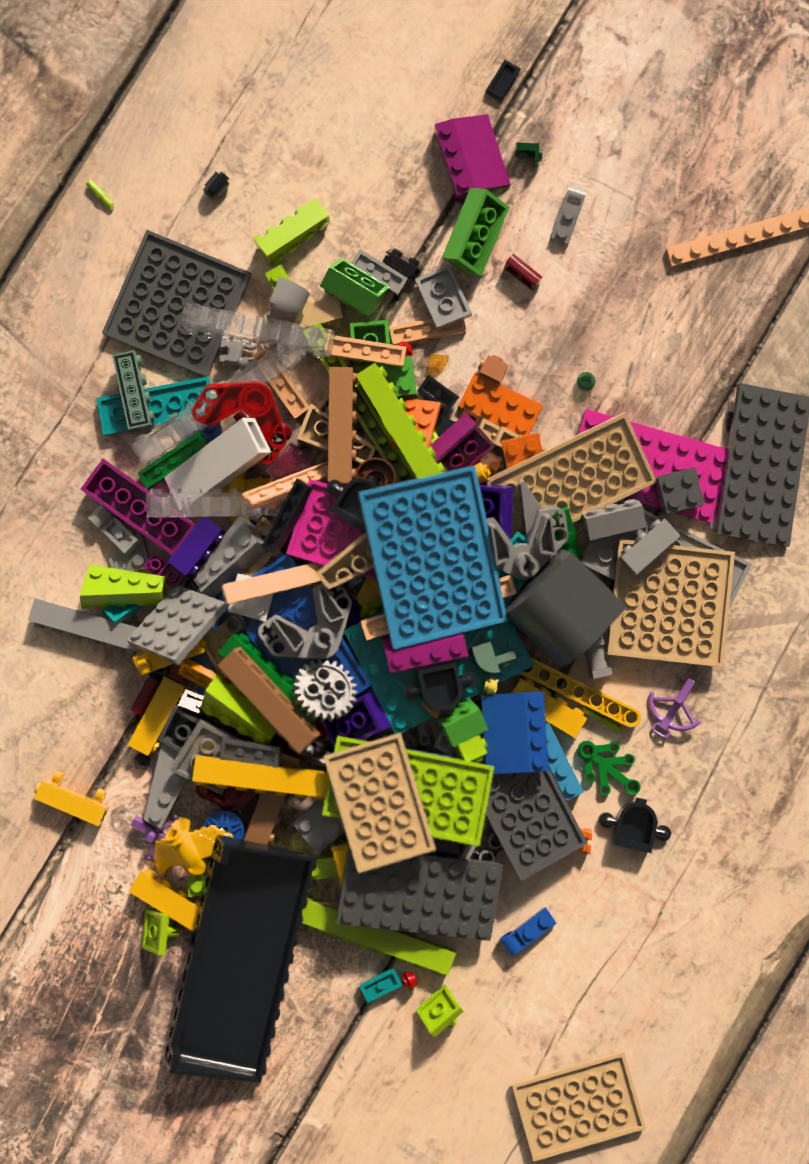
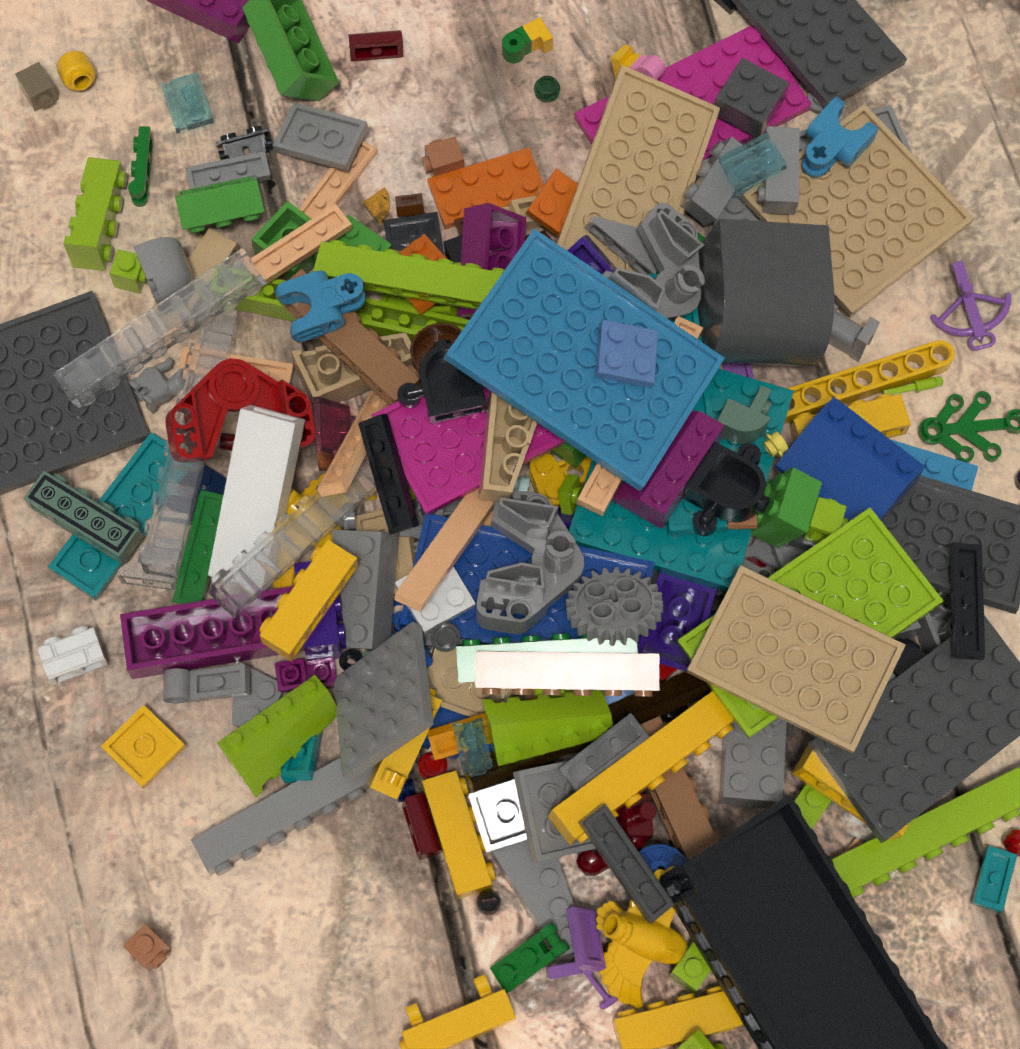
camera: 50 degrees left, 15 degrees down
(58, 530) = (143, 746): none -> yellow plate
(67, 454) = (72, 655): none -> white brick
(130, 806) = (529, 958): none -> green plate
(161, 824) = (585, 939): none -> medium lavender tile
(189, 542) = (308, 600): none -> yellow brick
(194, 688) = (472, 747): none -> clear light blue hips
(206, 813) = (626, 863): none -> dark grey tile
(329, 131) = (37, 86): none -> dark tan brick
(337, 228) = (141, 167): none -> green plate
(344, 398) = (327, 301): none -> dark azure piece
(357, 140) = (76, 70): none -> yellow head
(396, 212) = (187, 102): none -> clear light blue plate
(450, 378) = (409, 205): none -> reddish brown plate
(455, 574) = (626, 353): none -> medium blue plate
(497, 854) = (967, 601): none -> black plate
(601, 343) = (526, 40): none -> leg
(635, 531) = (752, 162): none -> clear light blue plate
(640, 416) = (647, 65): none -> leg
(693, 559) = (833, 141): none -> dark azure piece

